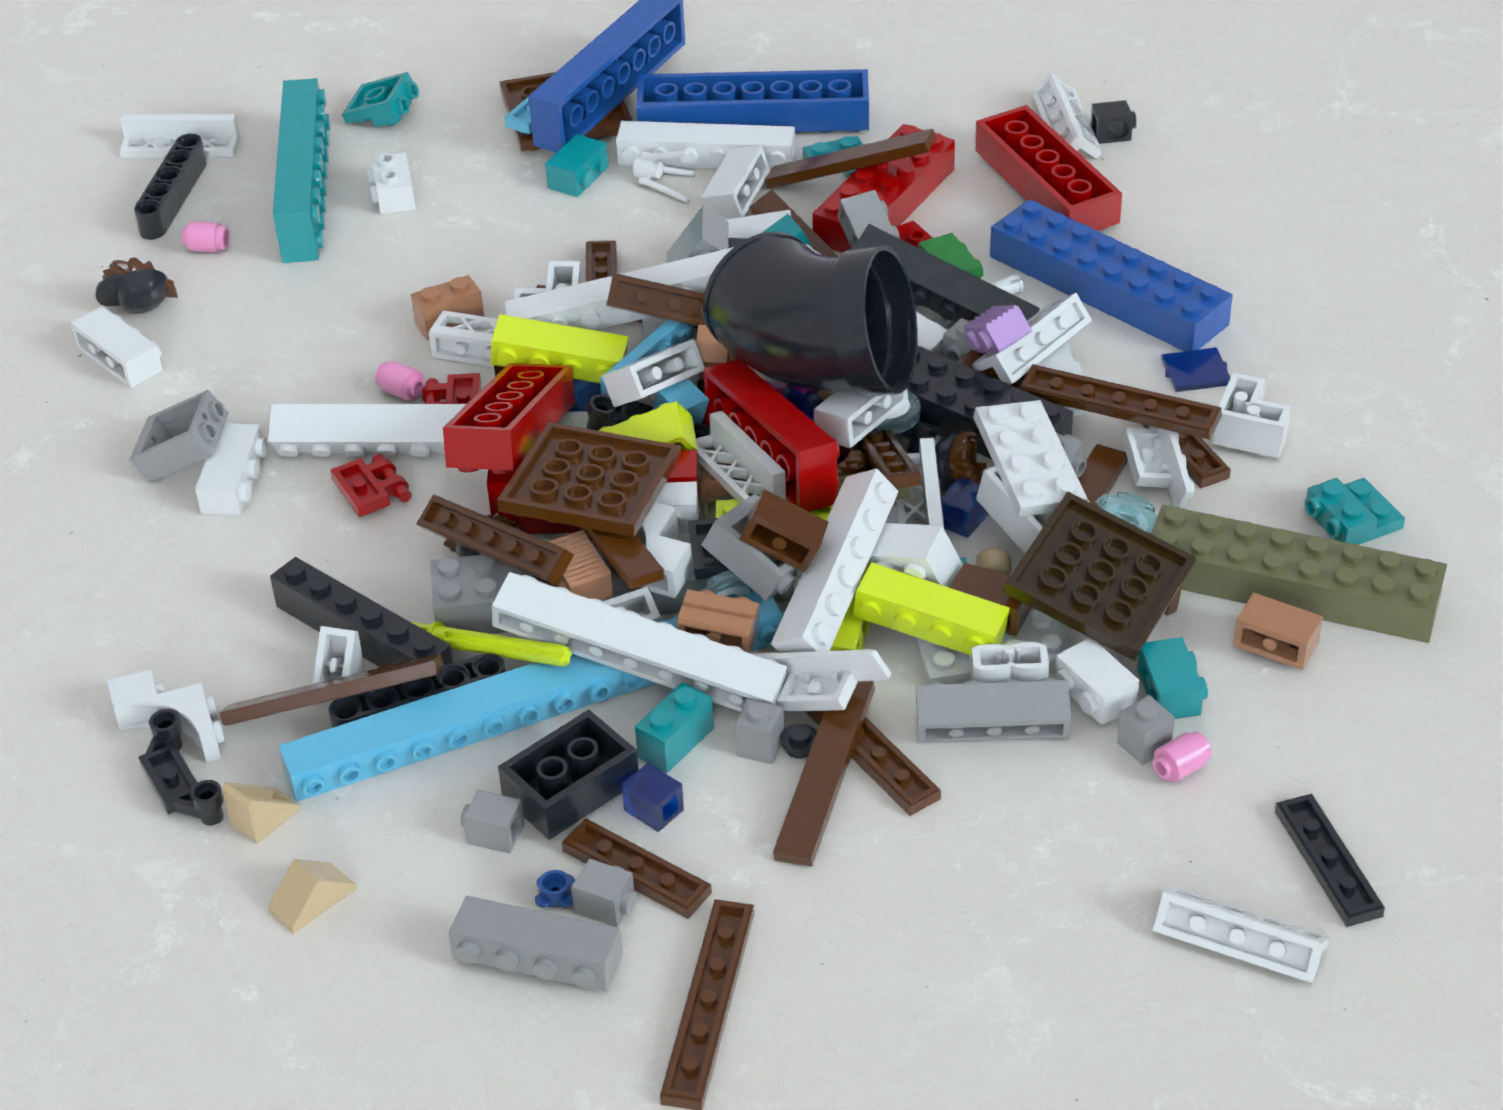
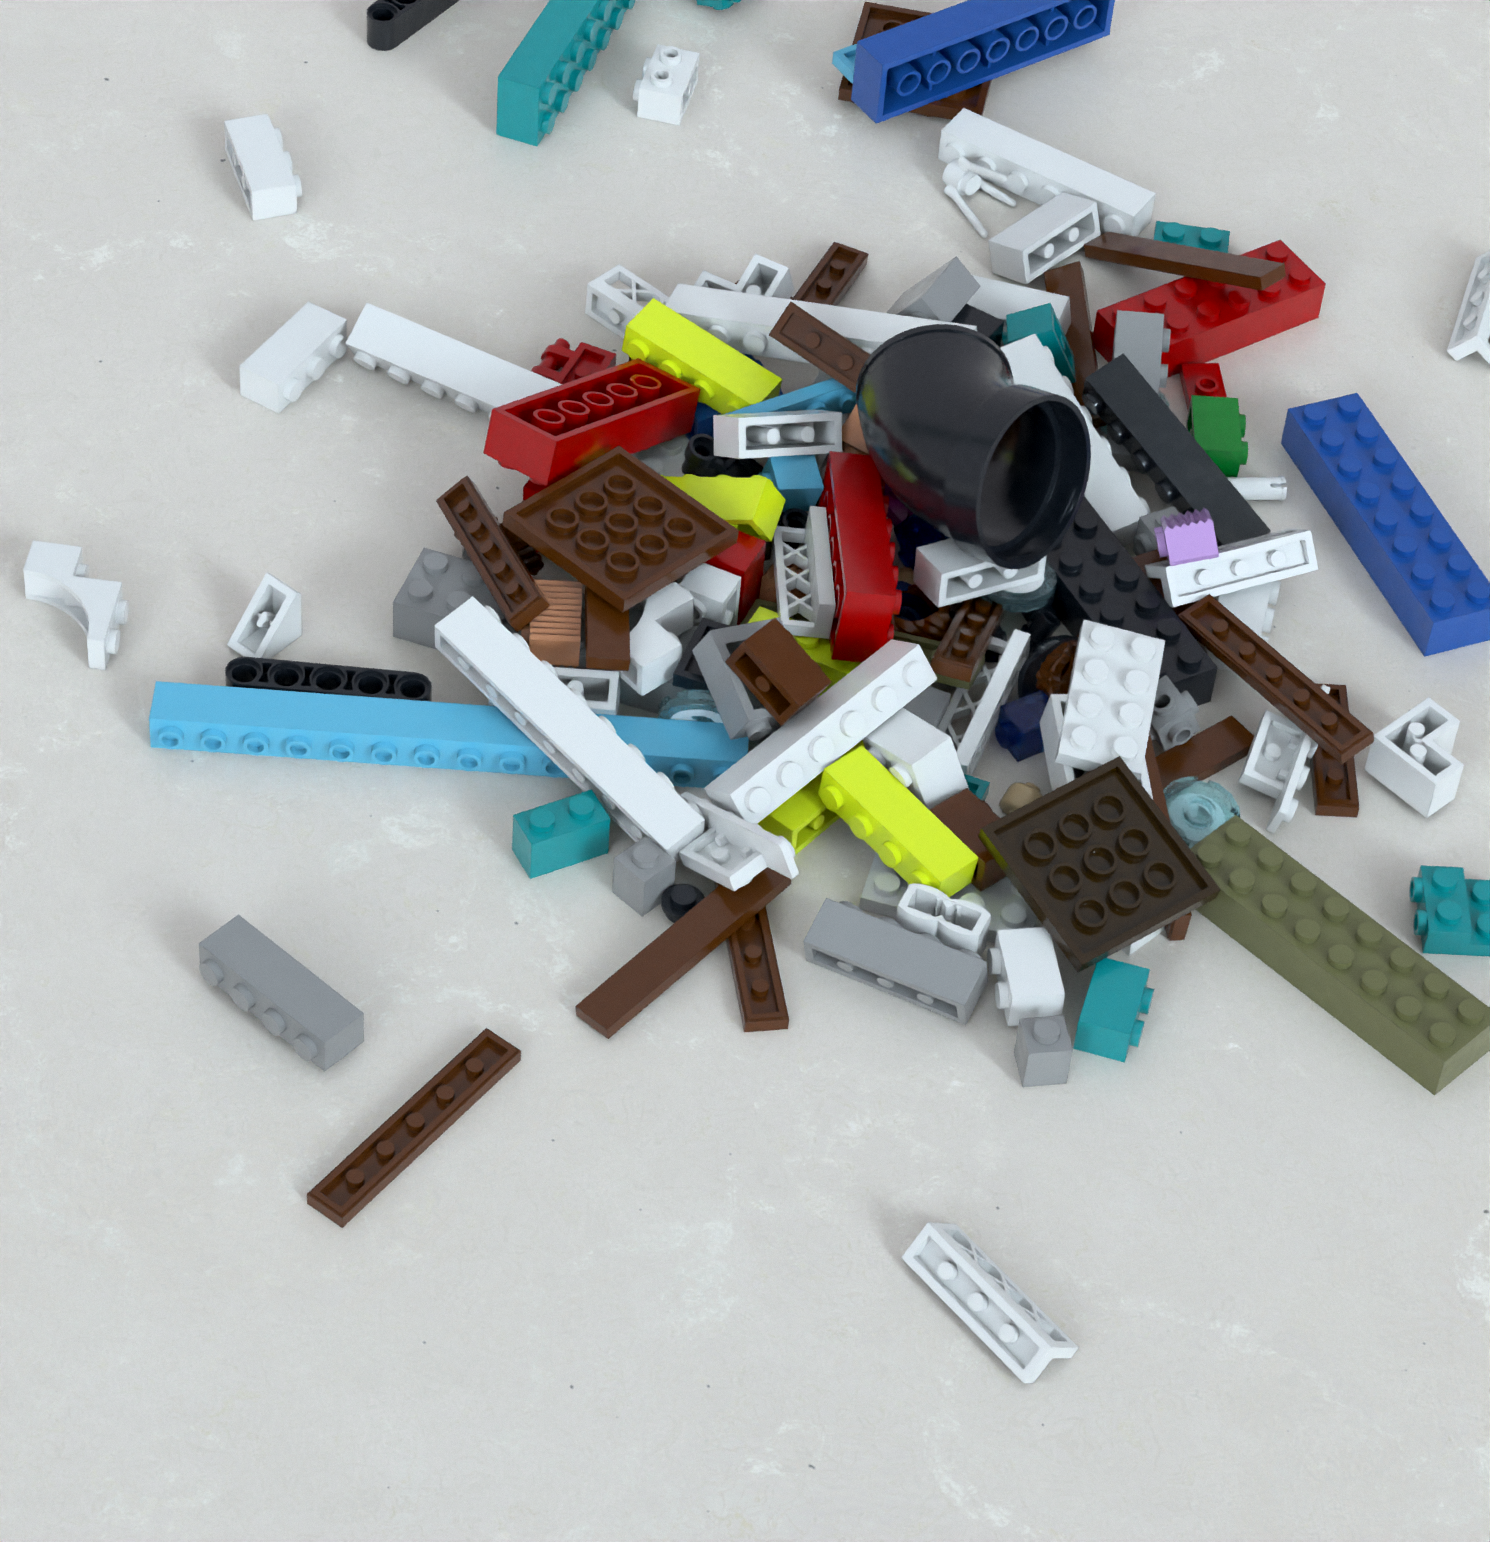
camera: 20 degrees right, 5 degrees up
(134, 286) = (316, 103): black hair -> none
(172, 777) = (43, 666): black plate -> none
(179, 436) = (261, 302): light grey window -> none
(205, 236) = (429, 71): bright pink brick -> none
(257, 809) = (105, 737): tan slope -> none
(308, 891) = (104, 844): tan slope -> none
(327, 602) = (311, 570): black brick -> none
(331, 689) = (244, 645): reddish brown tile -> none
(363, 490) = (414, 436): red plate -> none
(400, 380) = (529, 327): bright pink brick -> none
(457, 296) = (639, 252): nougat brick -> none
(493, 821) = (321, 852): light grey brick -> none
(502, 645) = (389, 634): neon yellow axle -> none
(554, 889) = (339, 948): blue plate -> none
(568, 773) = (422, 836): black brick -> none
(576, 165) = (884, 143): teal brick -> none
(604, 893) = (381, 972): light grey brick -> none
(651, 874) = (434, 962): reddish brown tile -> none
(652, 797) = (492, 897): clear blue brick -> none
(720, 618) = (668, 740): nougat brick -> none
(795, 99) = (1139, 142): blue brick -> none
(1047, 168) = (1412, 364): red brick -> none
(1181, 756) = (1061, 1095): bright pink brick -> none
(1195, 369) = (1413, 674): clear blue piece -> none
(1277, 631) = (1264, 1008): nougat brick -> none
(1329, 860) = (1140, 1271): black tile -> none

